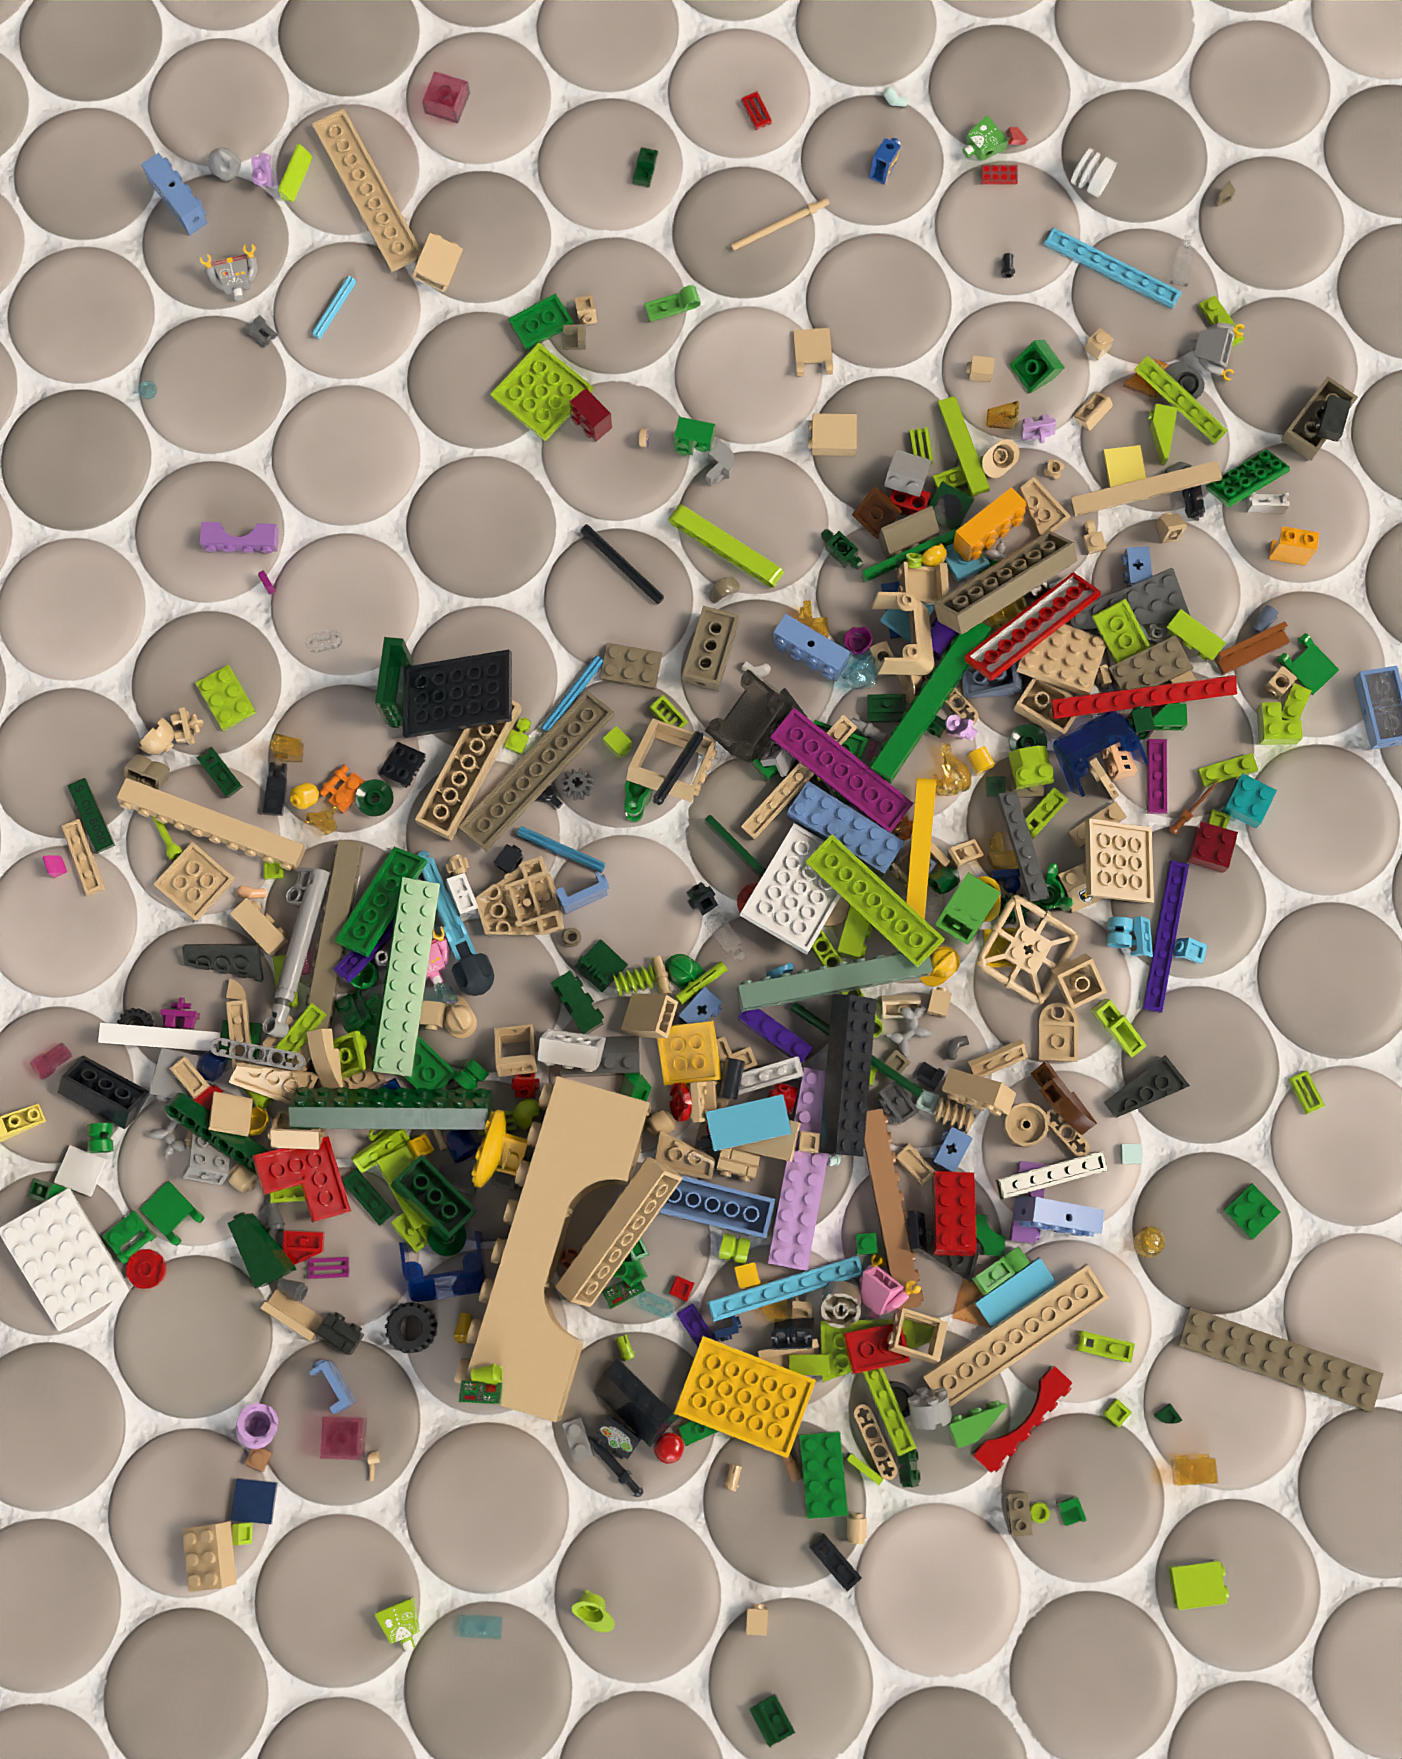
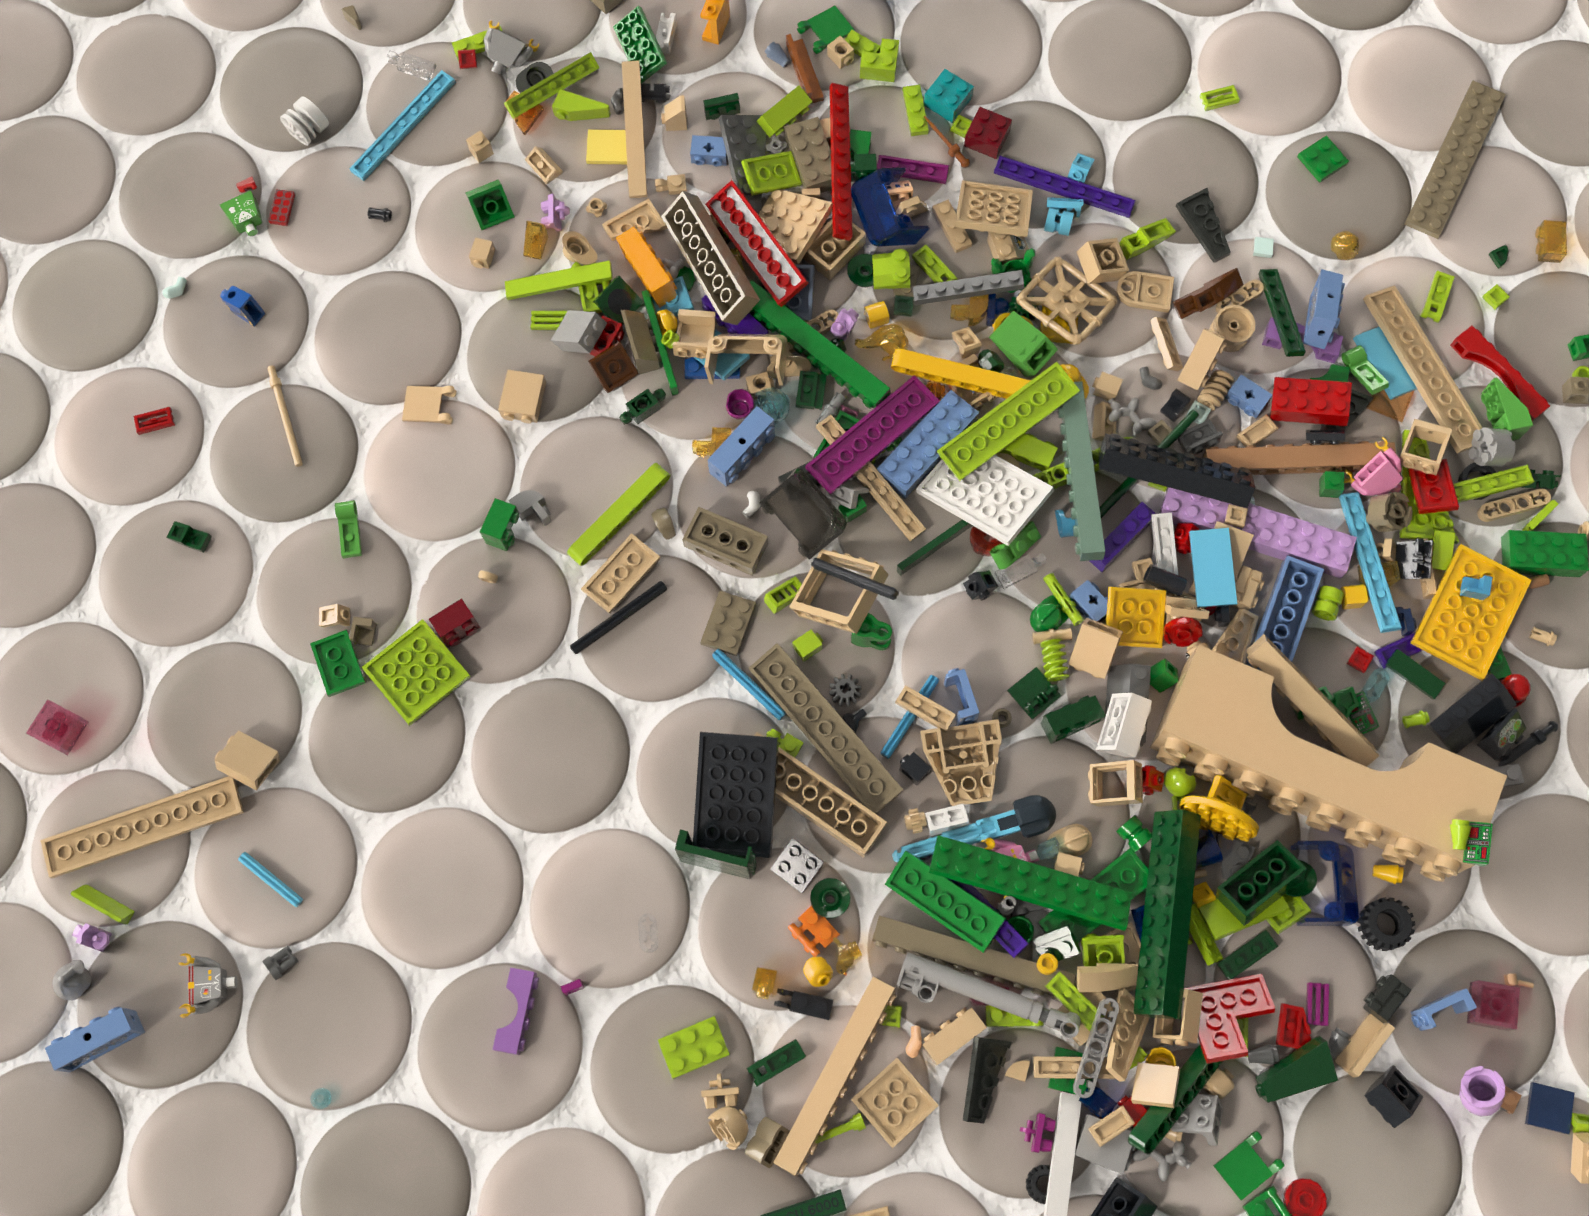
camera: 80 degrees left, 5 degrees down
(248, 1346) = (1393, 1097): none -> black slope
(332, 1002) = (1047, 964): none -> yellow tile
(566, 860) = (925, 708): none -> tan plate
(665, 558) = (620, 573): none -> tan plate
(672, 1344) = (1415, 674): none -> dark green tile
(750, 932) = (1007, 555): none -> bright green plate
(768, 1396) = (1476, 588): none -> dark azure panel
(1190, 571) = (721, 105): none -> dark green plate
(1198, 313) = (467, 59): none -> red tile

